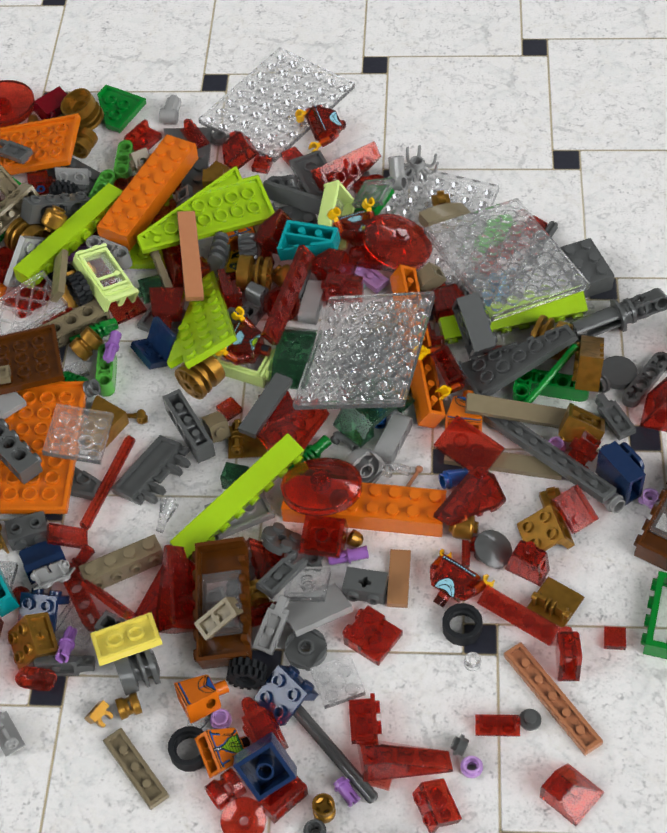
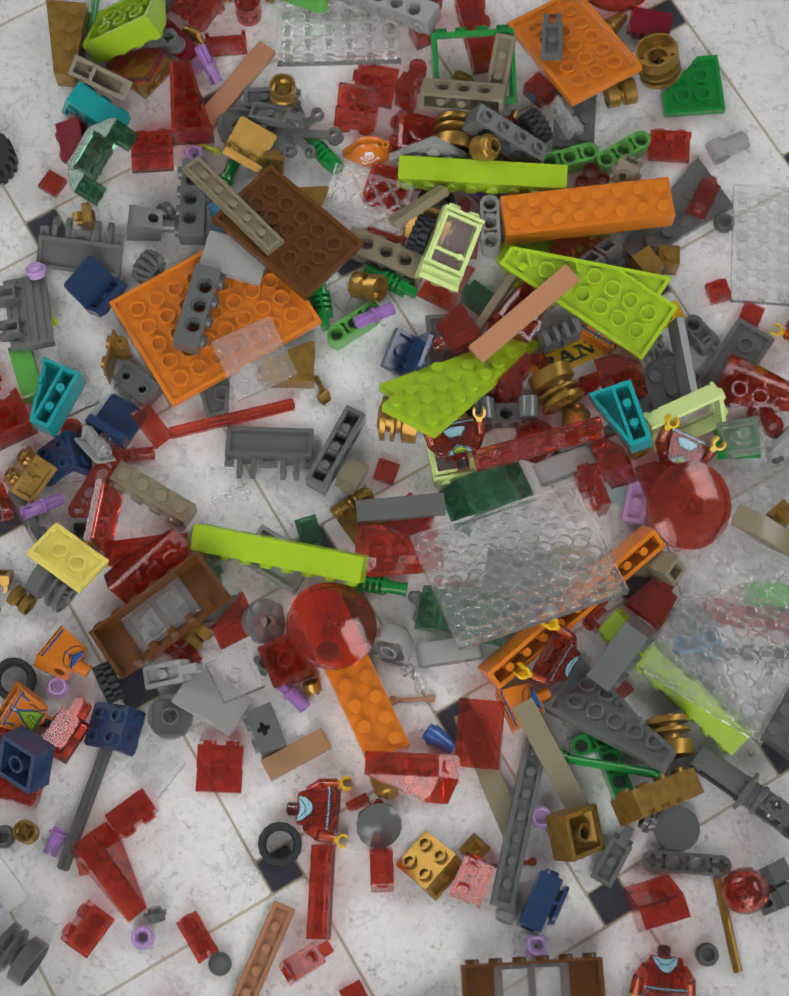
camera: 50 degrees right, 20 degrees up
(91, 387) = (322, 332): dark grey bush -> none
(217, 617) = (134, 625): dark tan hinge -> none
(238, 150) = (713, 256): clear red torso -> none
(248, 245) = (584, 356): dark grey gear -> none
(281, 575) = (223, 647): dark grey hinge -> none
(555, 602) = (359, 918): pearl gold hinge -> none
(584, 448) = (543, 851): clear red brick -> none

